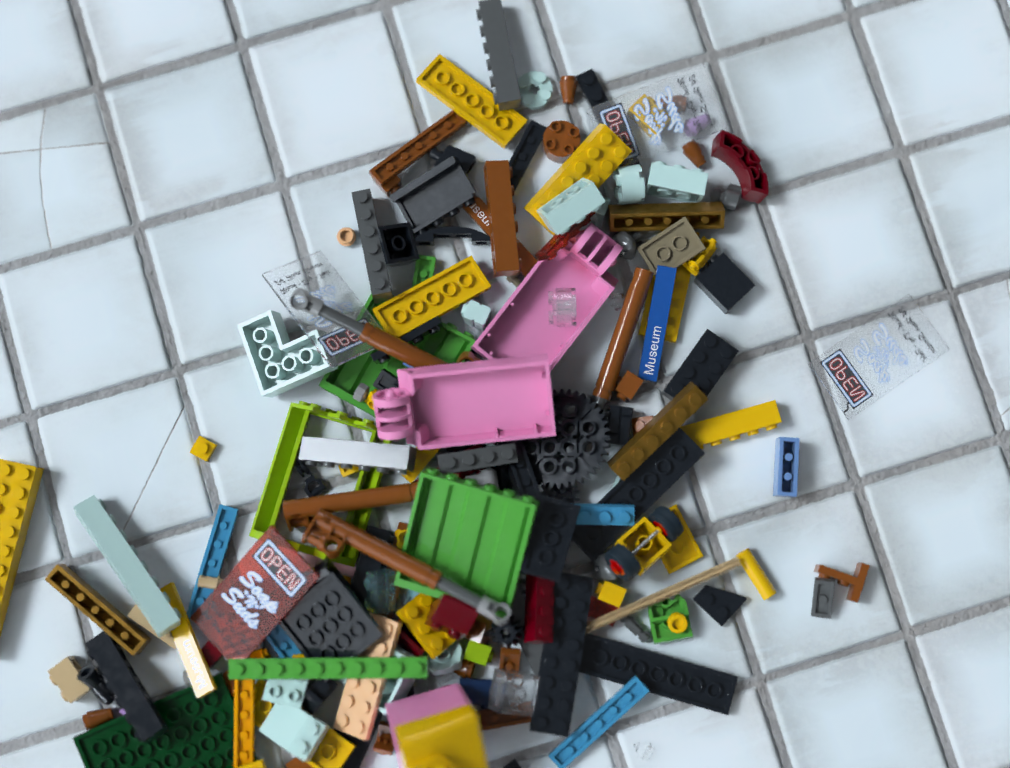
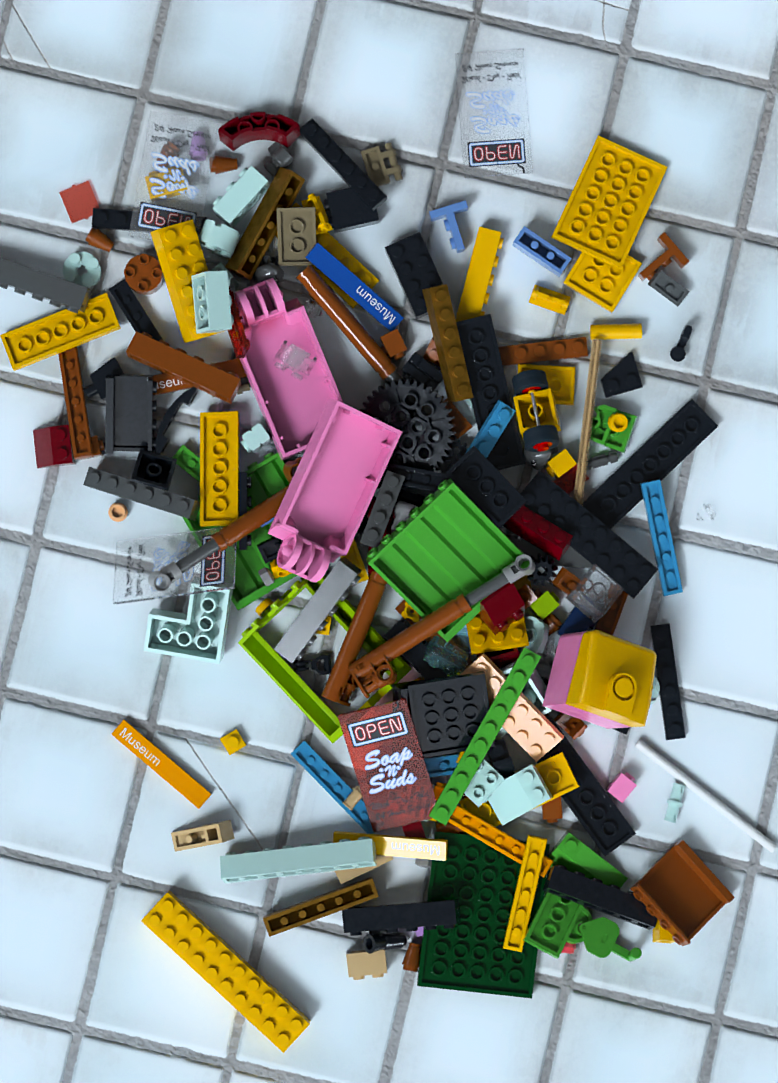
camera: 60 degrees left, 5 degrees up
(106, 470) = (203, 835): none -> tan slope
(149, 398) = (161, 764): none -> light orange tile
(336, 406) = (263, 606): none -> yellow tile
(370, 150) = (53, 446): none -> dark red slope
(590, 55) = (79, 201): none -> clear red piece
(594, 485) = (461, 422): none -> dark orange plate
(700, 520) = (543, 351): none -> dark orange plate
(748, 499) = (549, 299): none -> yellow hinge
(755, 253) = (342, 164): none -> black plate
(761, 374) = (450, 222): none -> medium blue bracket
(770, 640) = (678, 352): none -> black piece
(771, 282) = (375, 165): none -> dark tan plate
(799, 532) = (600, 280): none -> yellow plate
(865, 501) = (609, 202): none -> yellow plate

